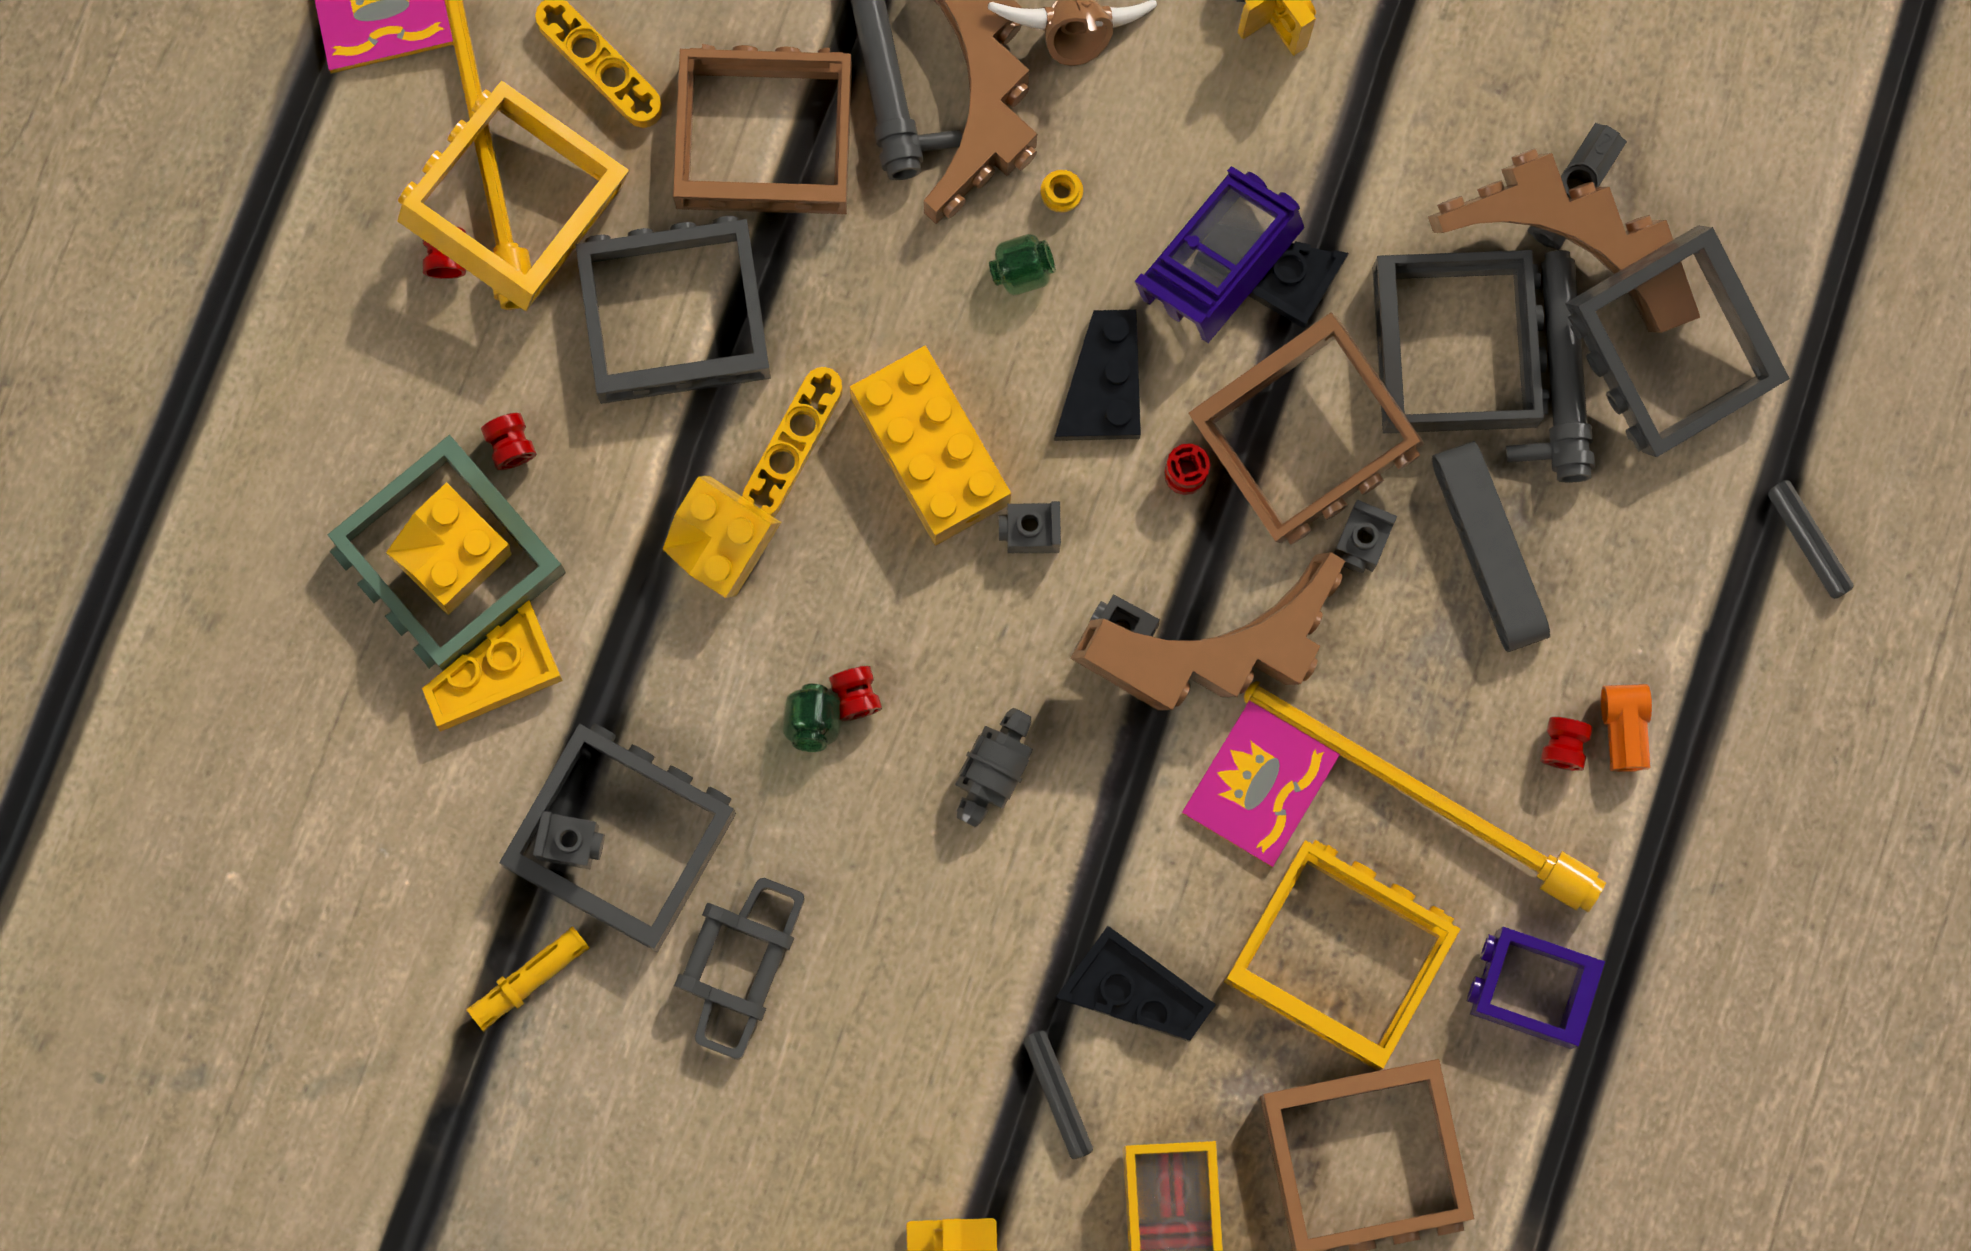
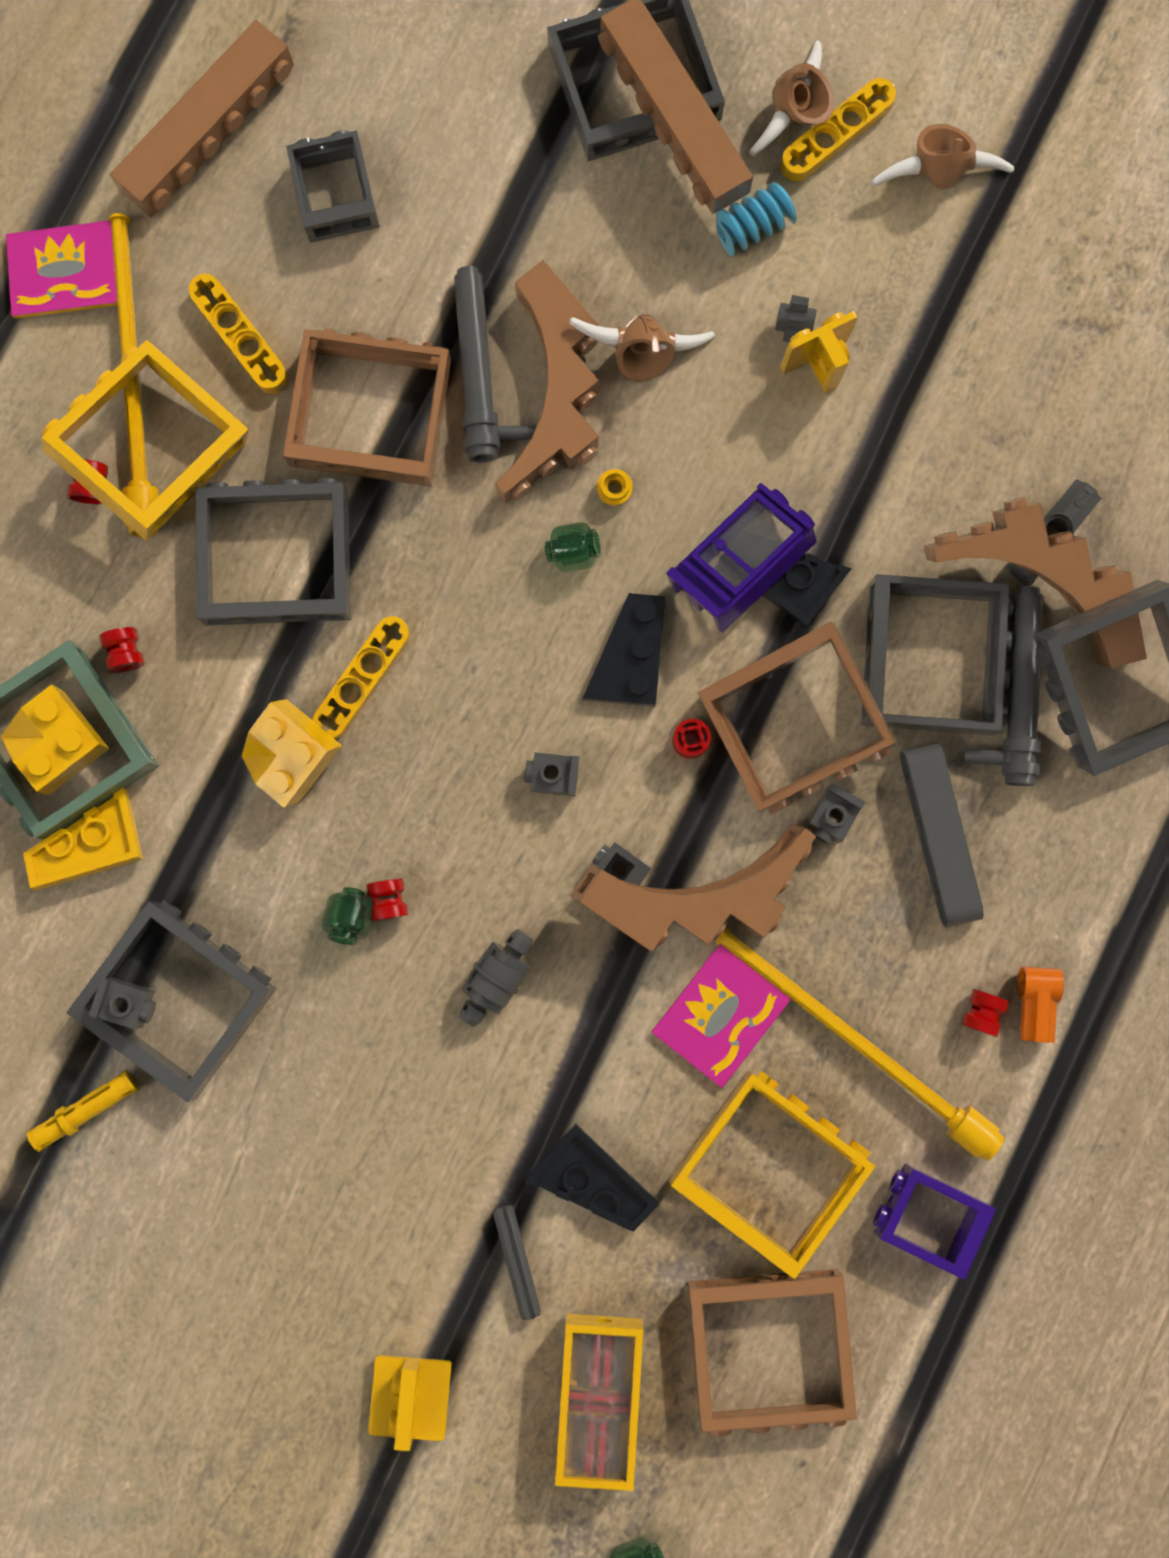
camera: 10 degrees right, 5 degrees up
(753, 1005) = (268, 1156): dark grey bar -> none
(930, 445) = (475, 693): yellow brick -> none

